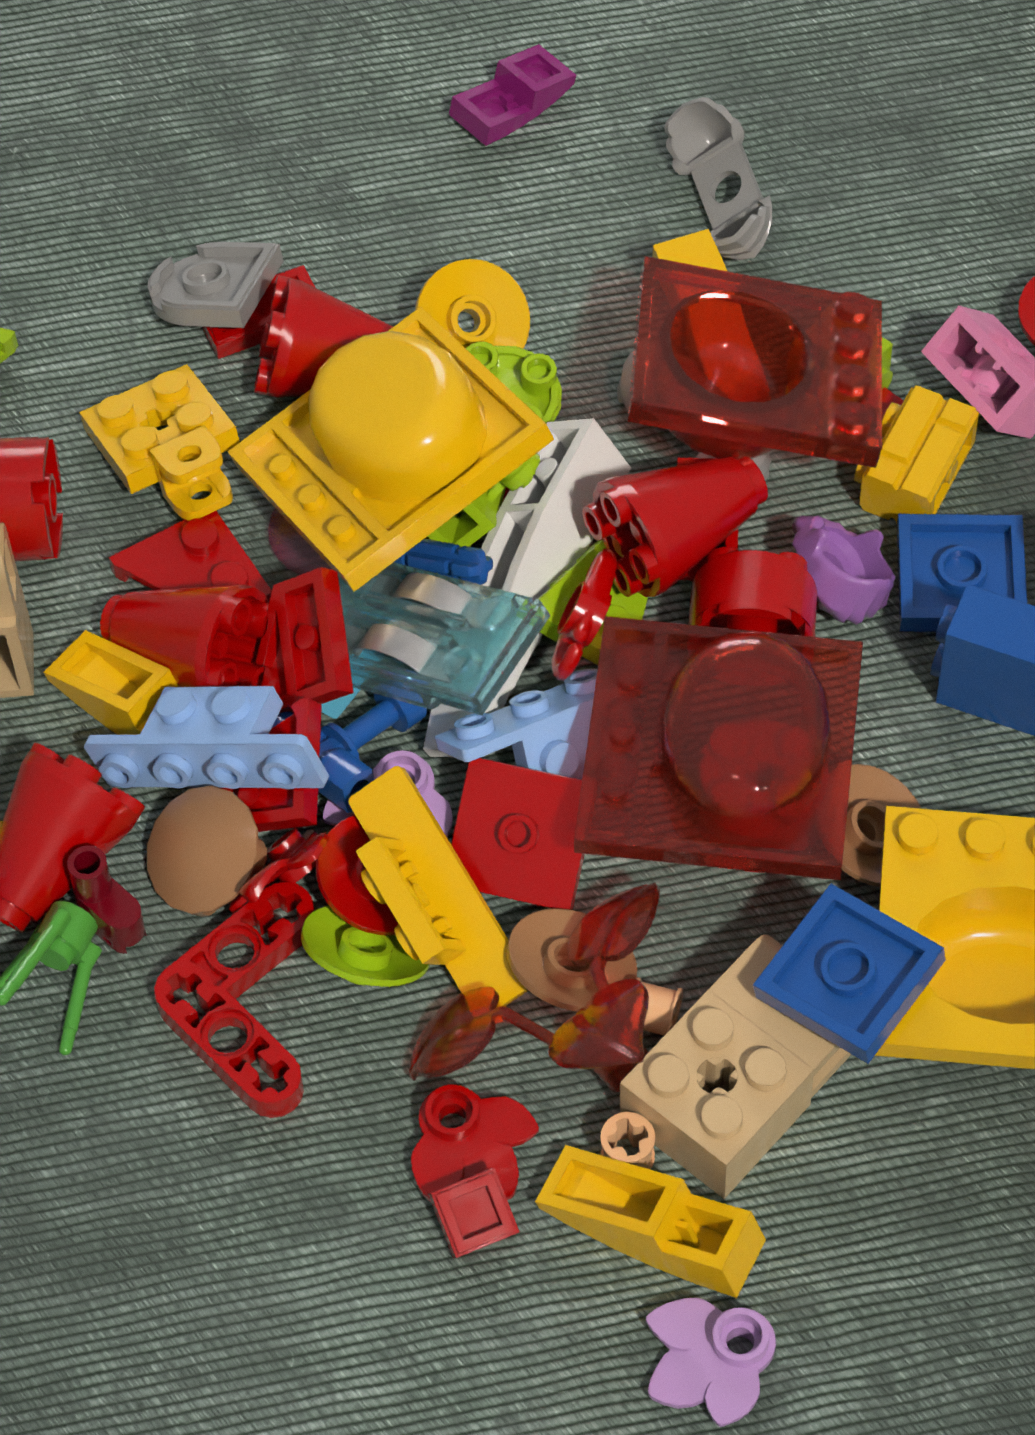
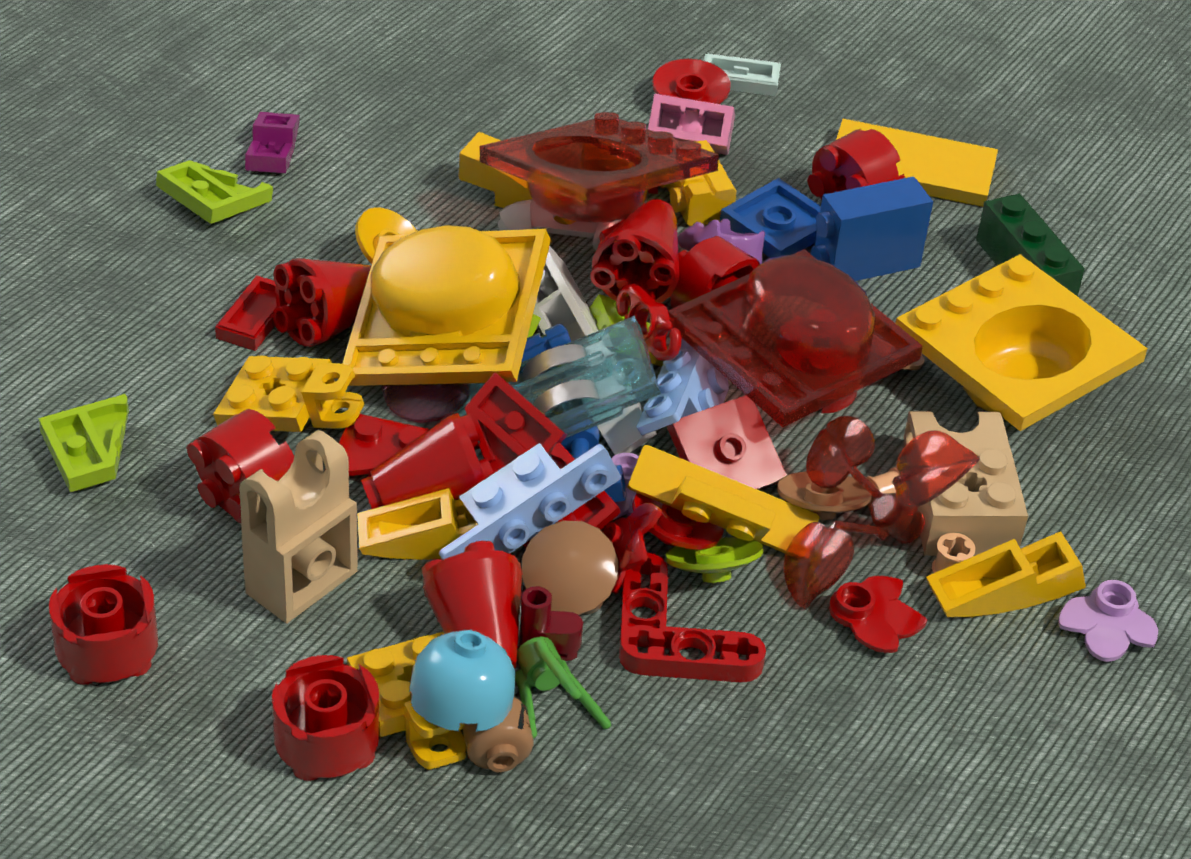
camera: 50 degrees left, 15 degrees down
(215, 285) = (218, 309): light grey tile -> none
(373, 124) = (210, 191): none -> lime wing
(473, 1213) = (922, 639): red tile -> none
(709, 147) = (417, 110): light grey piece -> none
(849, 973) = (983, 389): blue plate -> none

